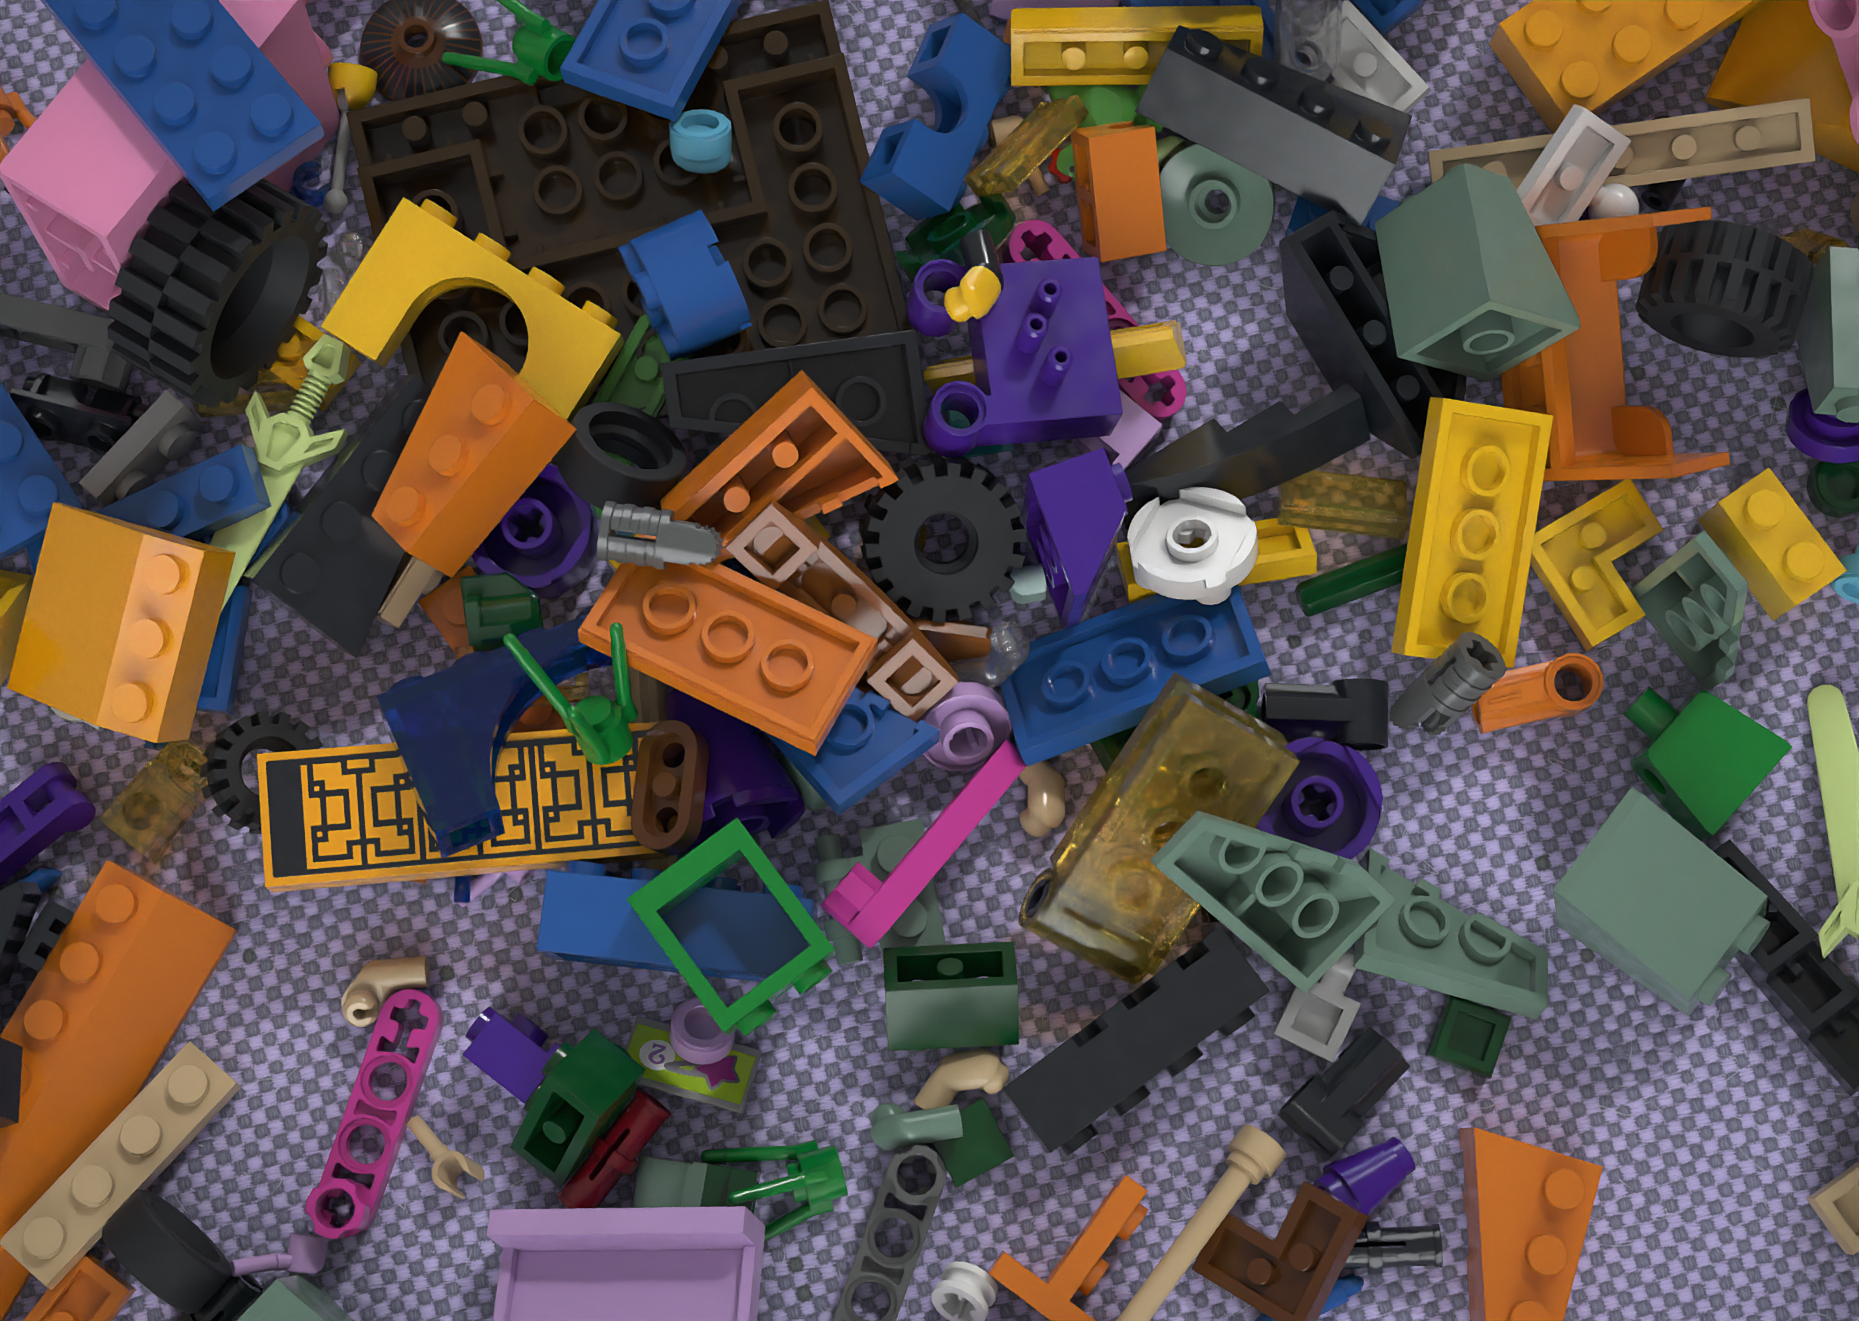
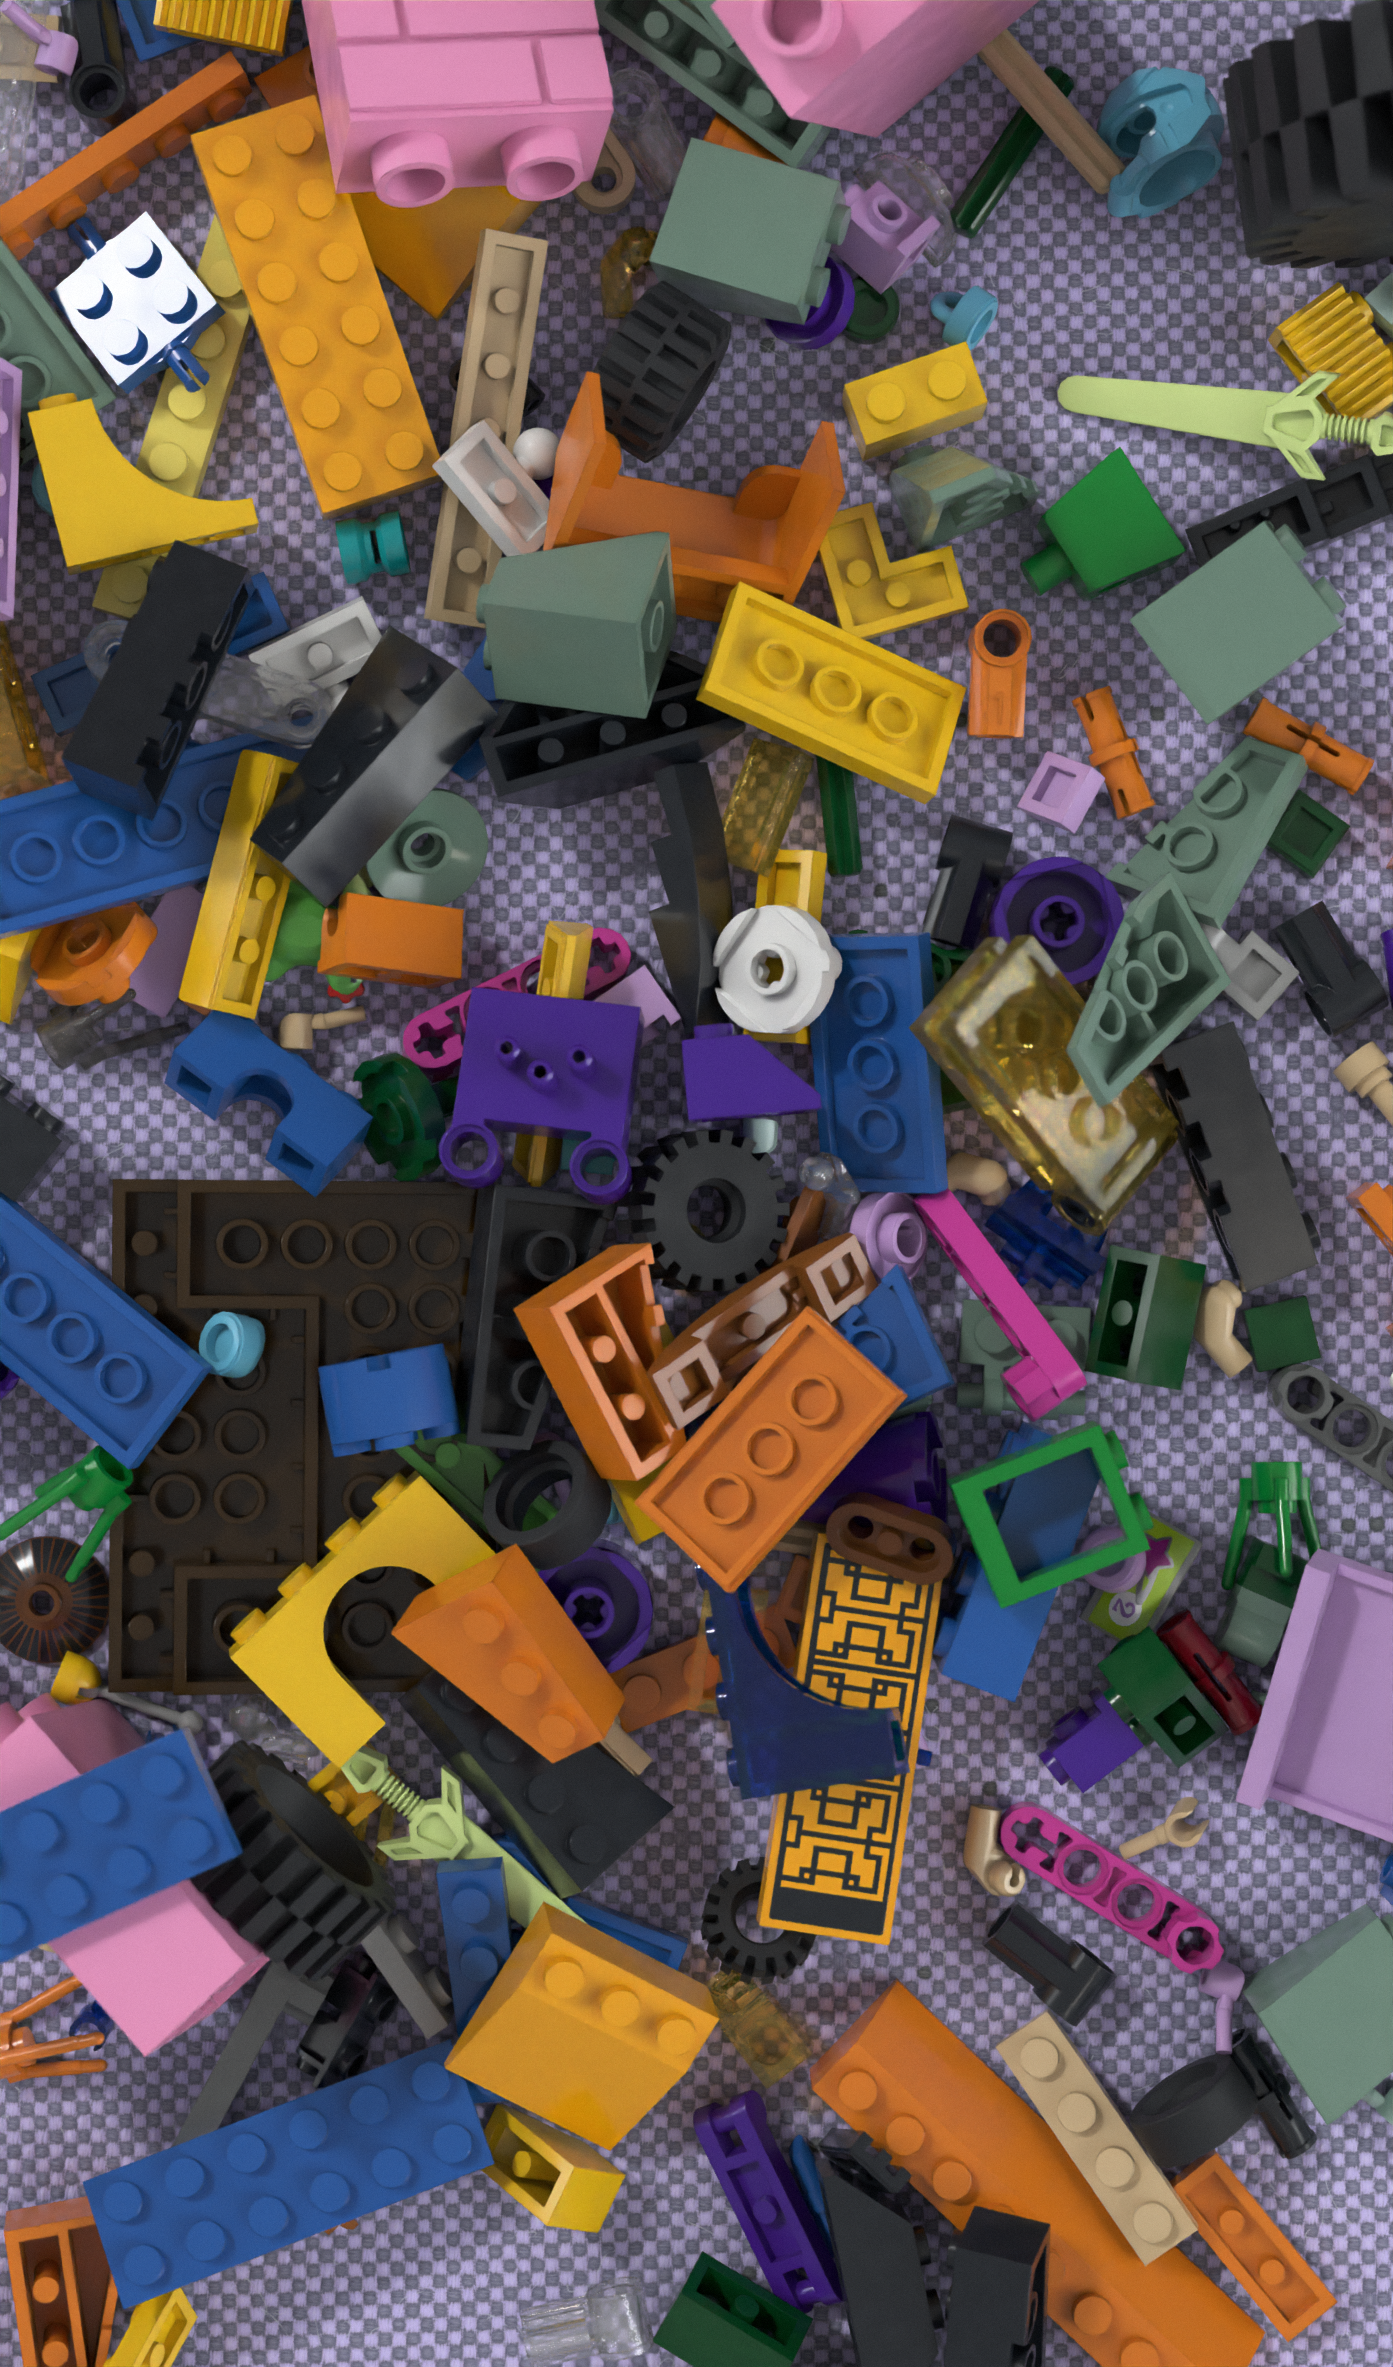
camera: 75 degrees left, 10 degrees up
(278, 1088) = (1062, 1972): none -> black piece
(496, 607) = (670, 1659): dark green piece -> none
(595, 721) = (814, 1594): green plant -> none
(675, 539) = (656, 1494): dark grey hinge -> none
(897, 1130) = (1259, 1381): sand green arm -> none
(982, 282) = (479, 1111): yellow arm -> none
(993, 876) = (1039, 1245): none -> clear blue hips
(1027, 146) = (325, 1021): clear yellow tile -> none
(1440, 783) = (1061, 792): none -> lavender plate
(1449, 685) = (982, 753): dark grey hinge -> none
(1479, 88) = (359, 552): none -> teal wheel
(1493, 826) = (1113, 752): none -> orange pin
(1555, 1026) = (1321, 752): none -> orange pin

